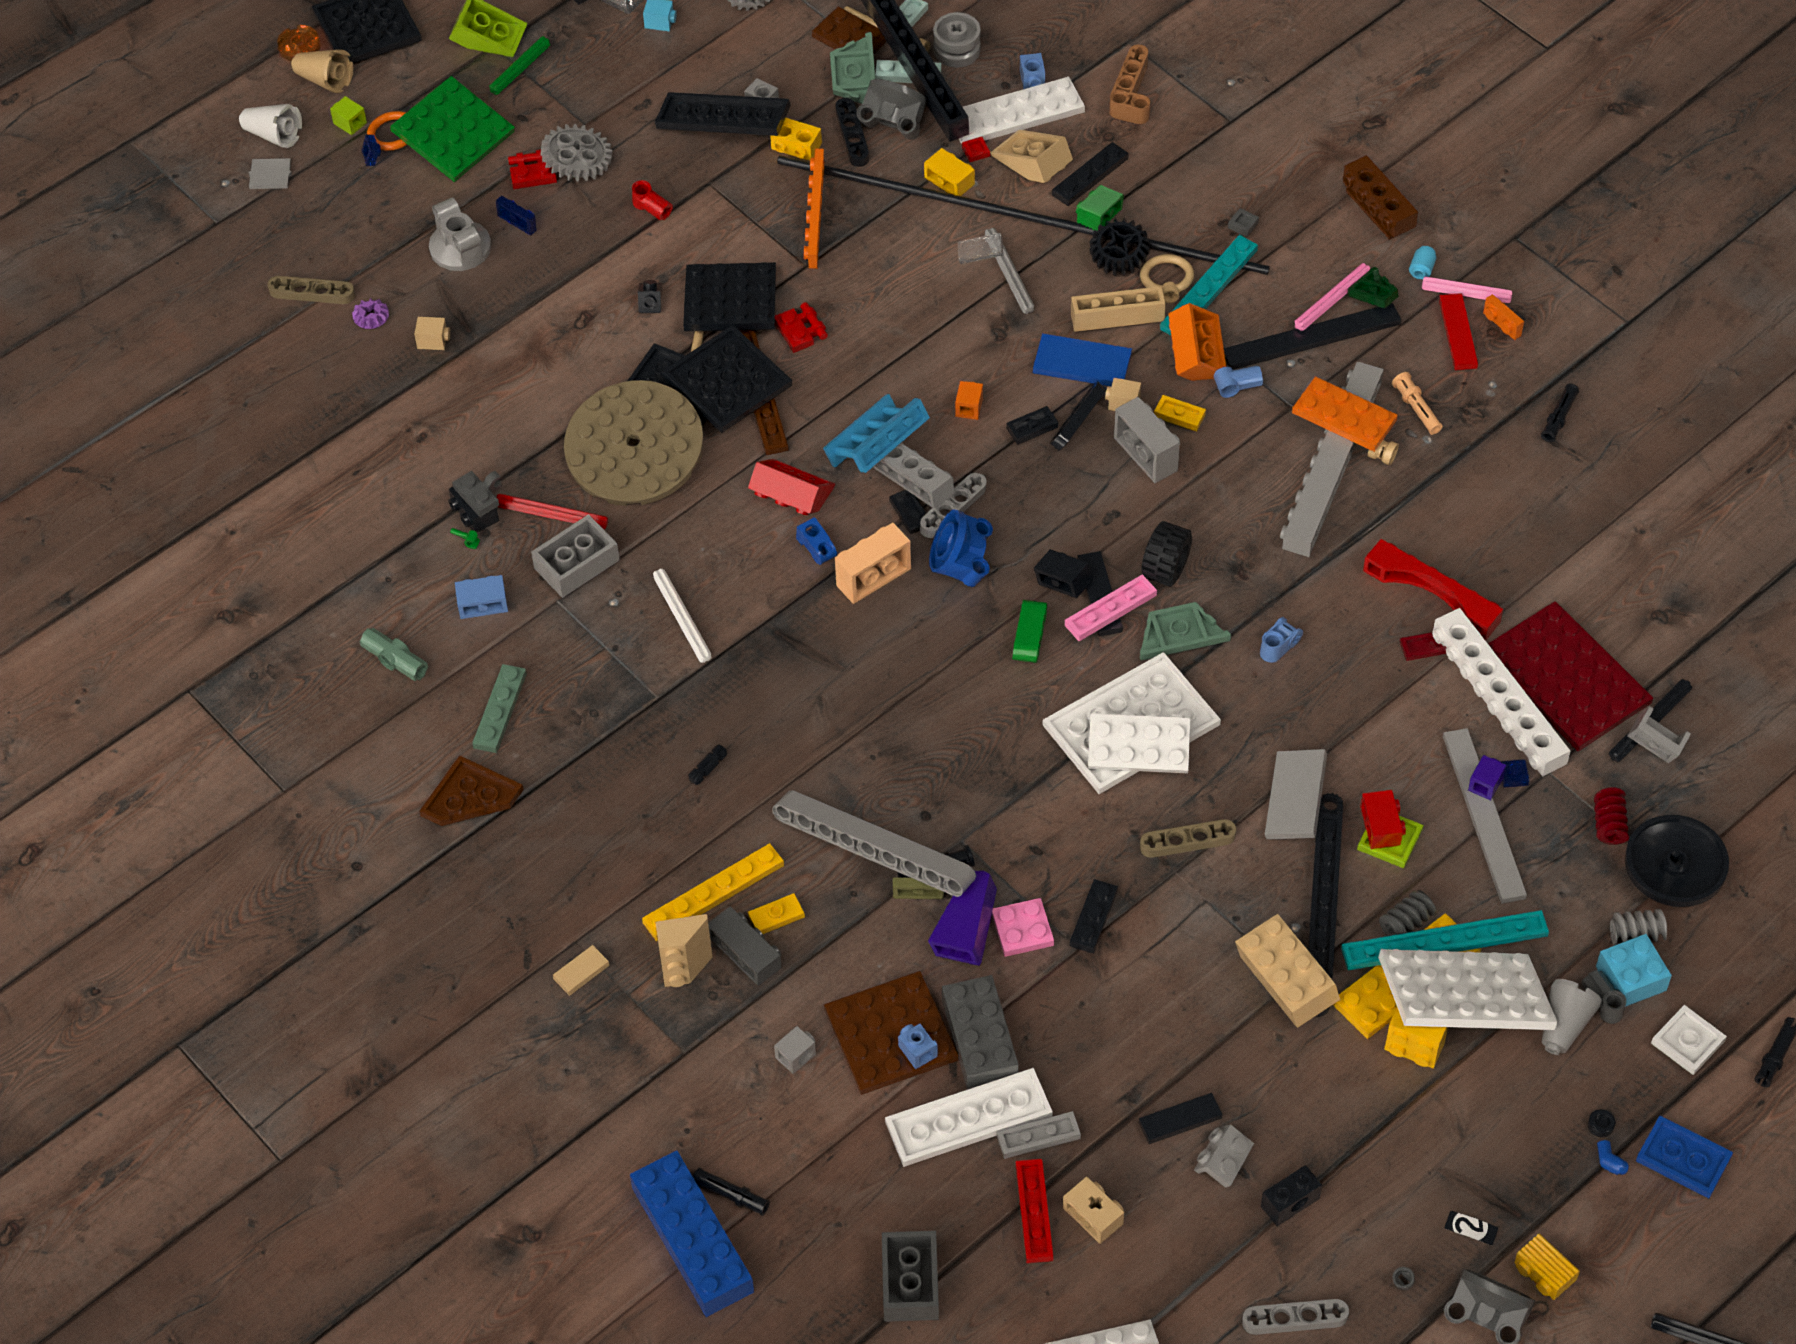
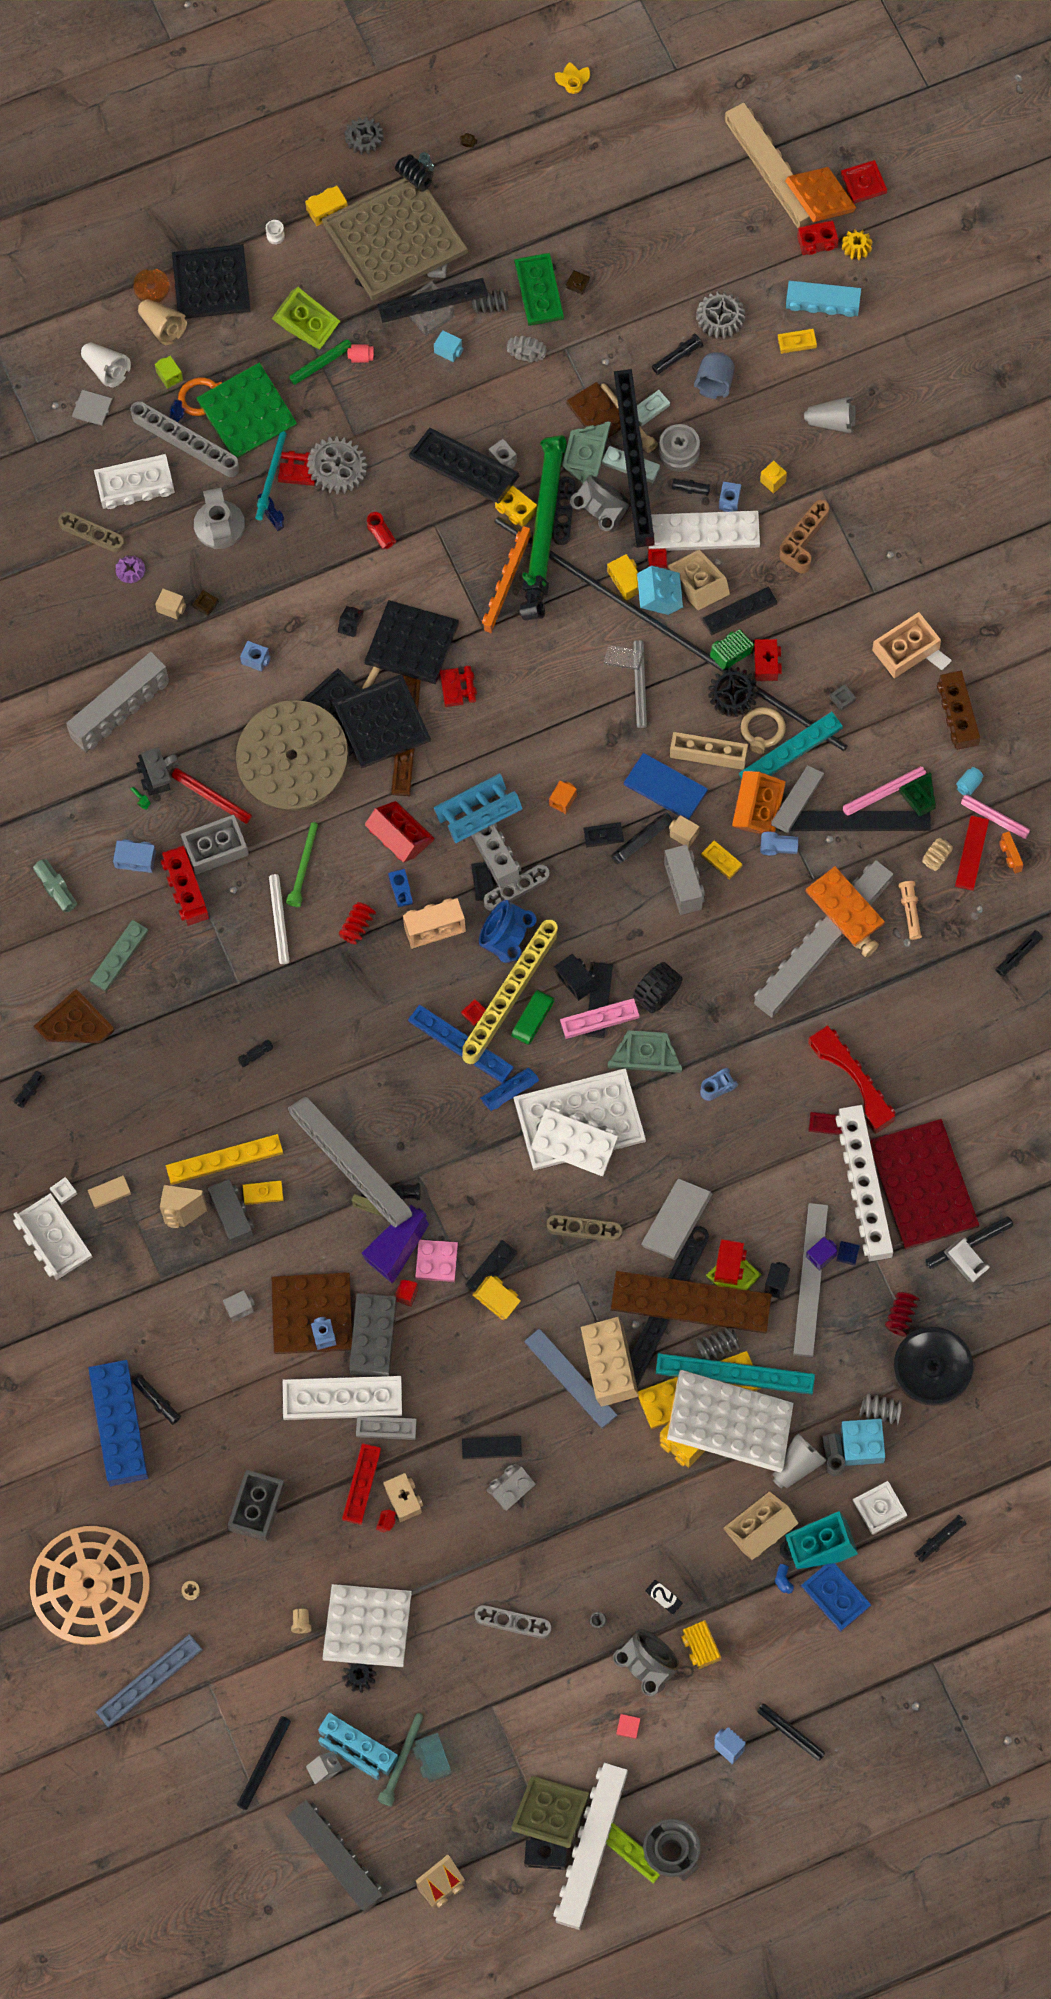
camera: 20 degrees right, 15 degrees up
(345, 228) = (134, 481): none -> white bracket
(390, 172) = (189, 446): none -> light grey beam
(404, 442) = (118, 702): none -> light grey brick
(438, 883) = (29, 1089): none -> black pin
(472, 322) = (205, 603): none -> dark brown plate
(505, 201) = (263, 502): none -> teal bar
(522, 984) = (63, 1191): none -> white plate
(526, 1041) = (52, 1237): none -> white bracket
(551, 357) = (254, 649): none -> medium blue brick
(555, 609) = (196, 910): none -> red brick
(562, 45) = (361, 353): none -> coral brick
(693, 587) = (294, 898): none -> bright green piece
(779, 591) = (356, 922): none -> red piece
(849, 198) = (535, 580): none -> green piece
(955, 683) = (455, 1040): none -> blue plate
(958, 646) = (473, 1012): none -> red plate
(984, 73) = (690, 486): none -> black pin
(992, 610) = (505, 998): none -> light yellow beam
(995, 170) = (660, 590): none -> medium azure brick
(1001, 969) = (406, 1292): none -> red brick
(1034, 714) = (509, 1089): none -> blue plate
(1072, 40) = (773, 477): none -> yellow brick
(1083, 1244) = (386, 1521): none -> red plate
(1116, 942) = (497, 1297): none -> yellow brick
(1142, 207) = (764, 650): none -> red brick
(1239, 330) = (797, 799): none -> light grey tile
(1244, 1010) = (569, 1378): none -> sand blue tile
(1291, 1195) = (544, 1533): black brick -> none
(1292, 153) = (906, 645): none -> light nougat brick
(1323, 160) = (939, 659): none -> white sticker
(1354, 877) = (691, 1302): none -> reddish brown plate
(1422, 338) = (937, 854): none -> tan gear
(1448, 822) = (777, 1280): none -> black brick
(1555, 1103) = (761, 1525): none -> tan slope
(1641, 1096) = (822, 1542): none -> teal slope

